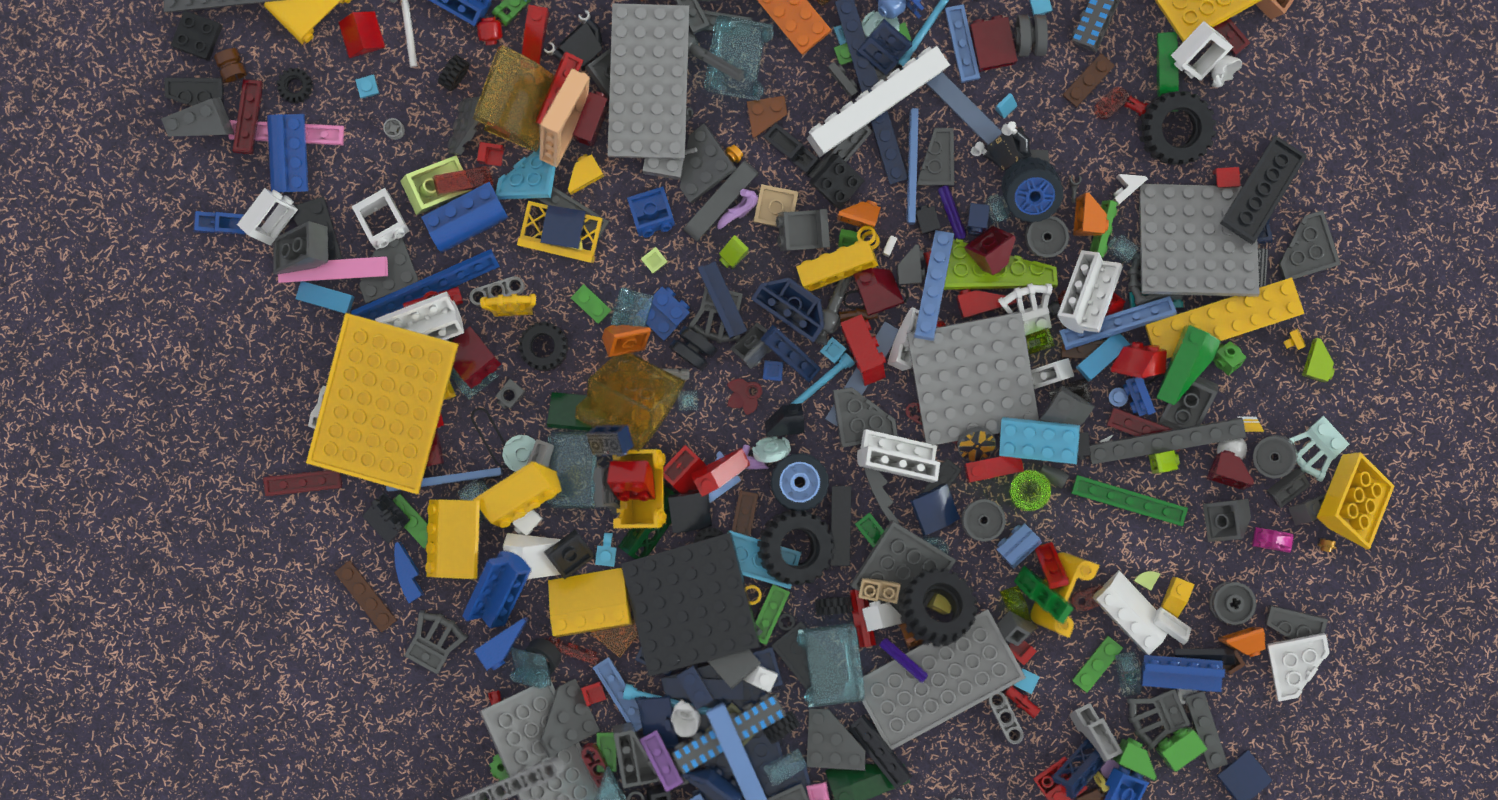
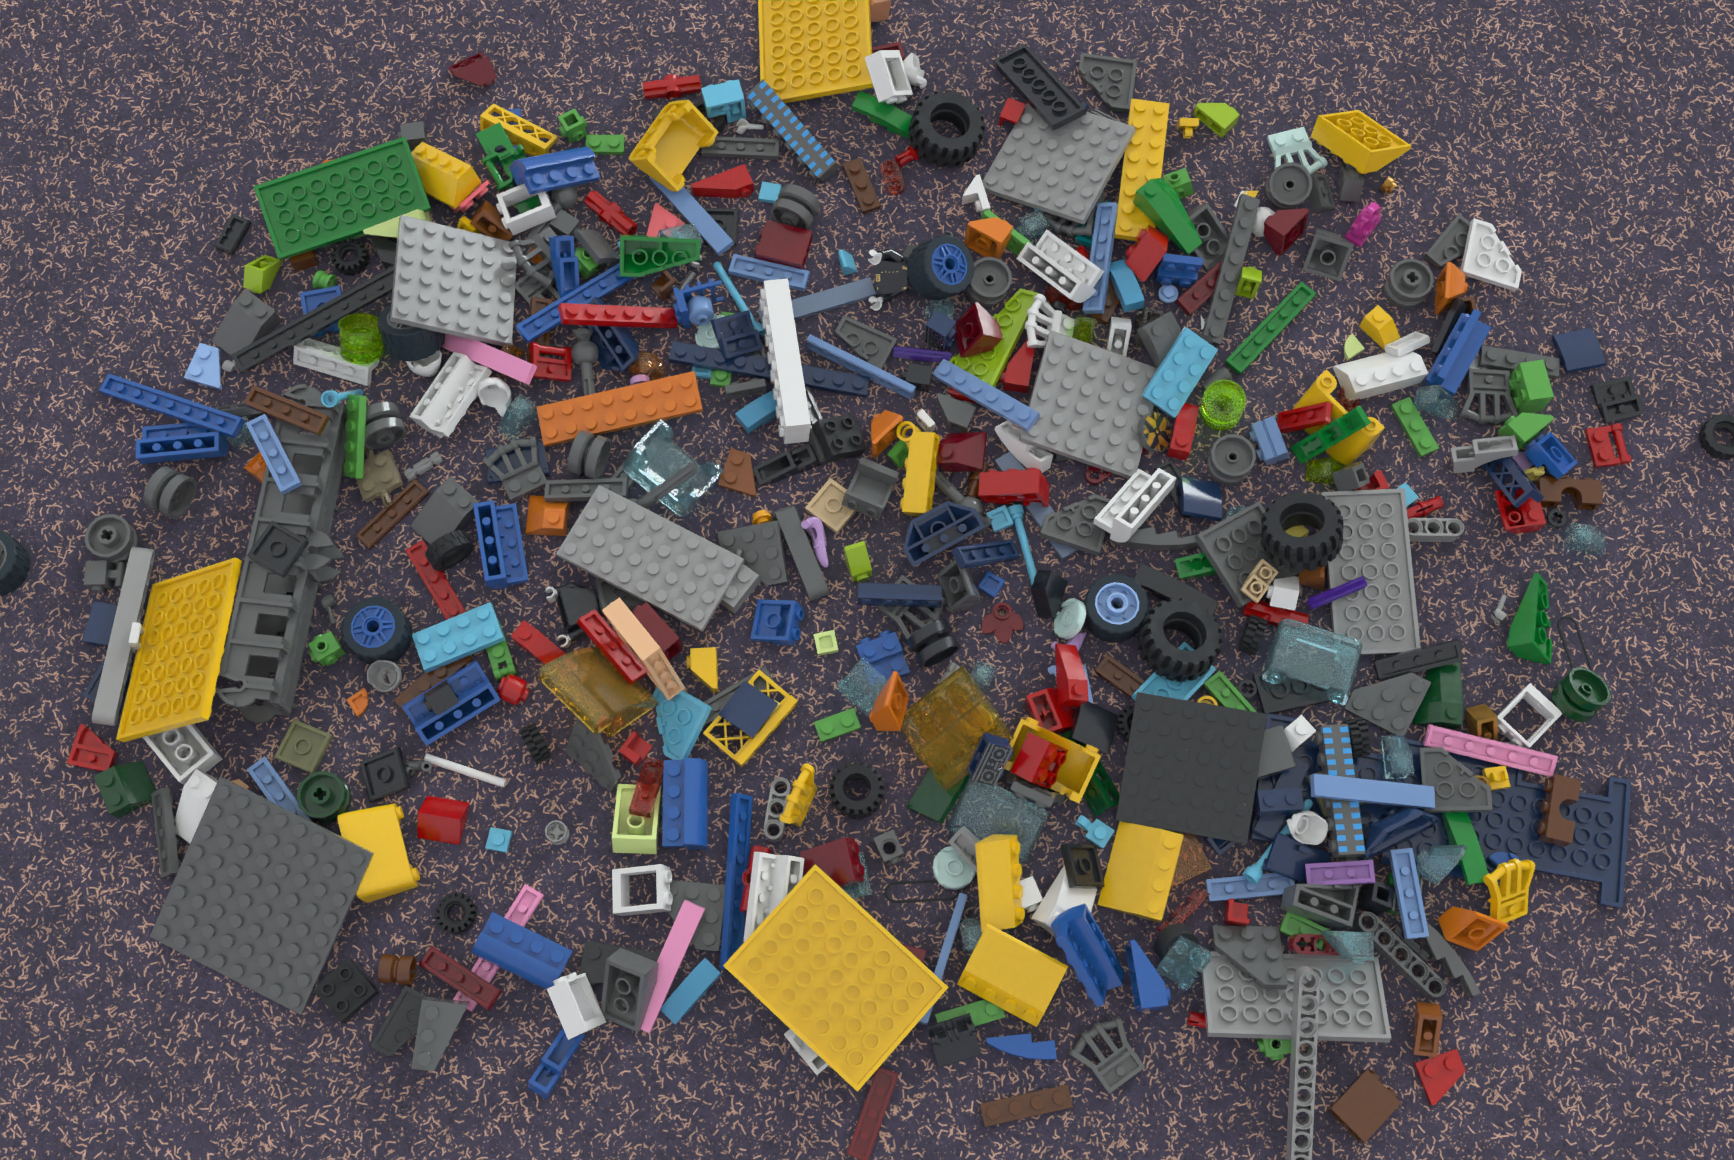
camera: 65 degrees left, 15 degrees down
(824, 100) = (757, 412): none -> dark azure slope

